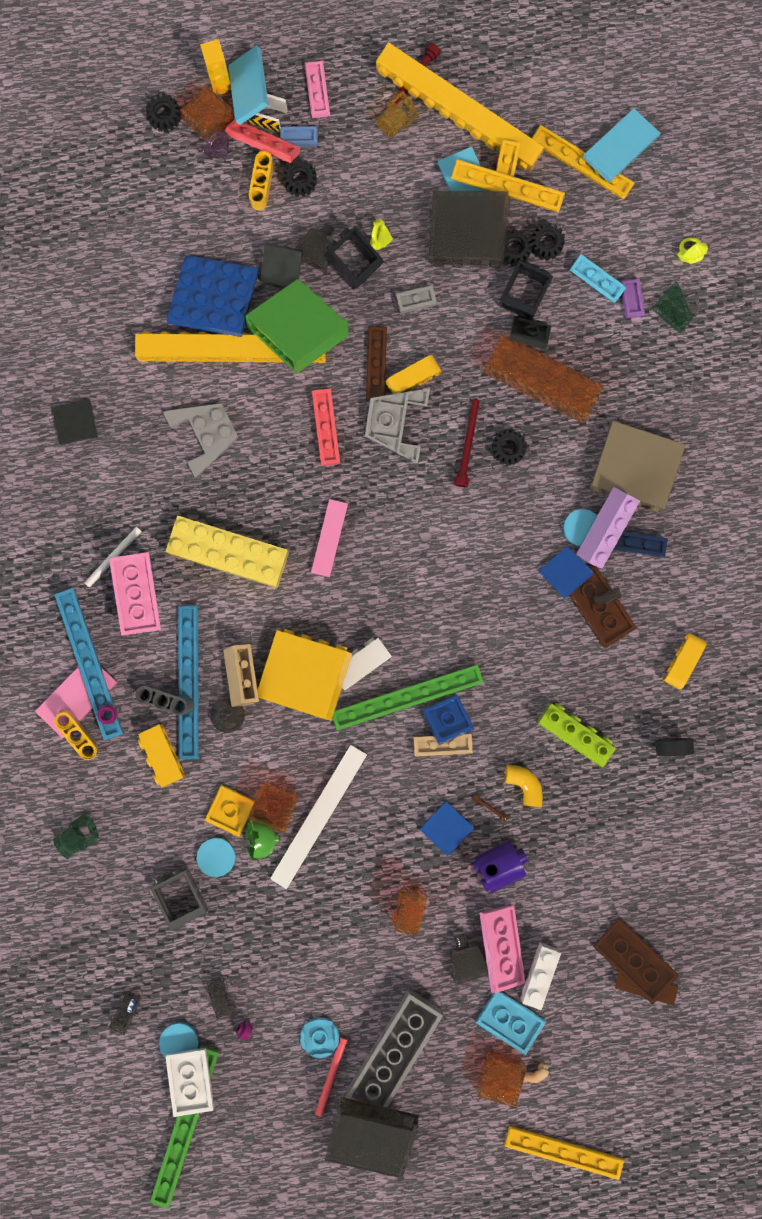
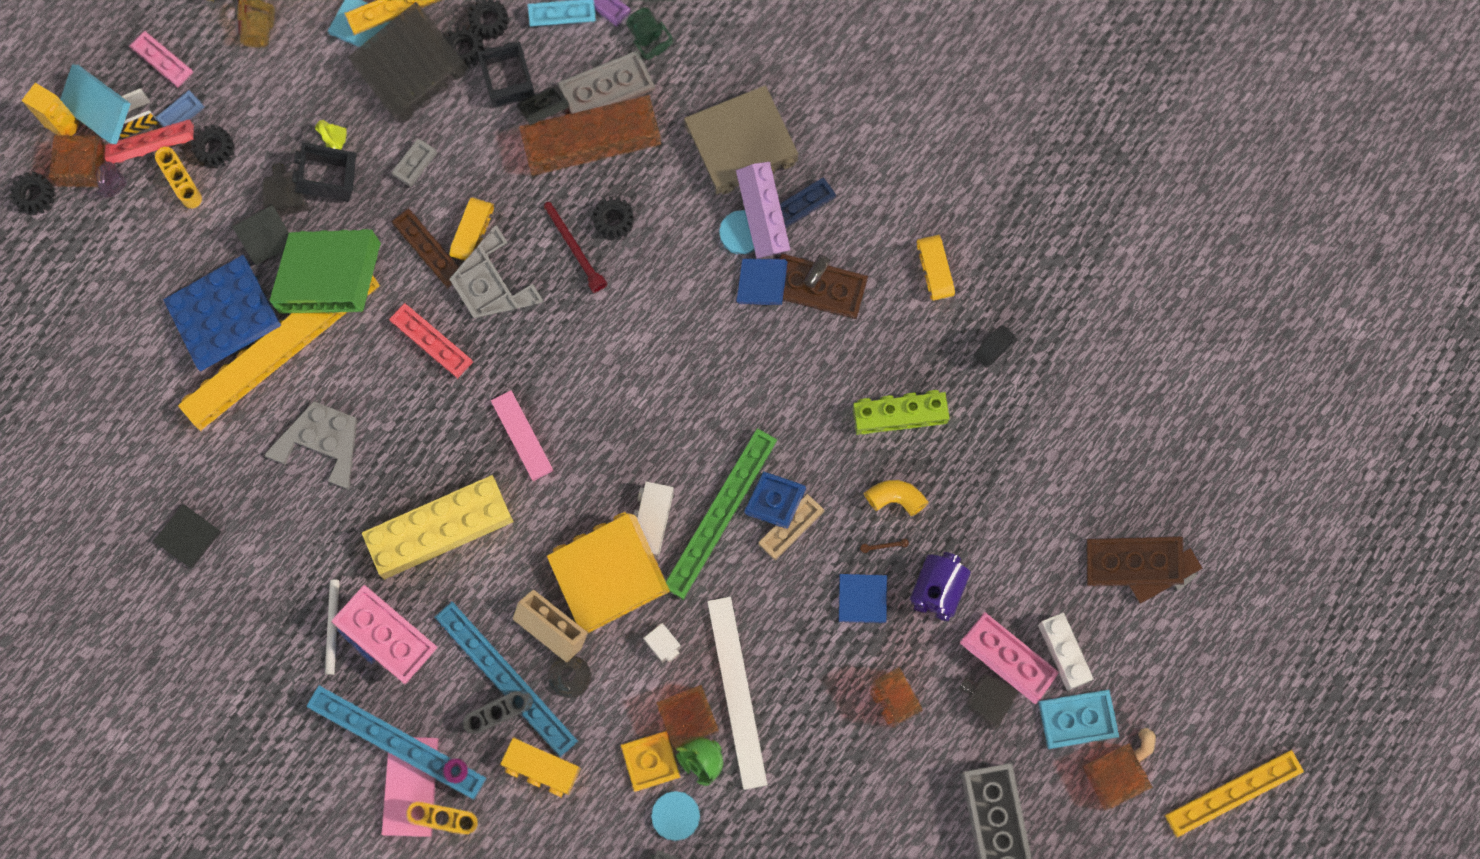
camera: 40 degrees left, 10 degrees down
(299, 747) = (663, 643): none -> white brick
(584, 353) = (607, 84): none -> light grey tile
(642, 338) = (647, 30): none -> clear green piece

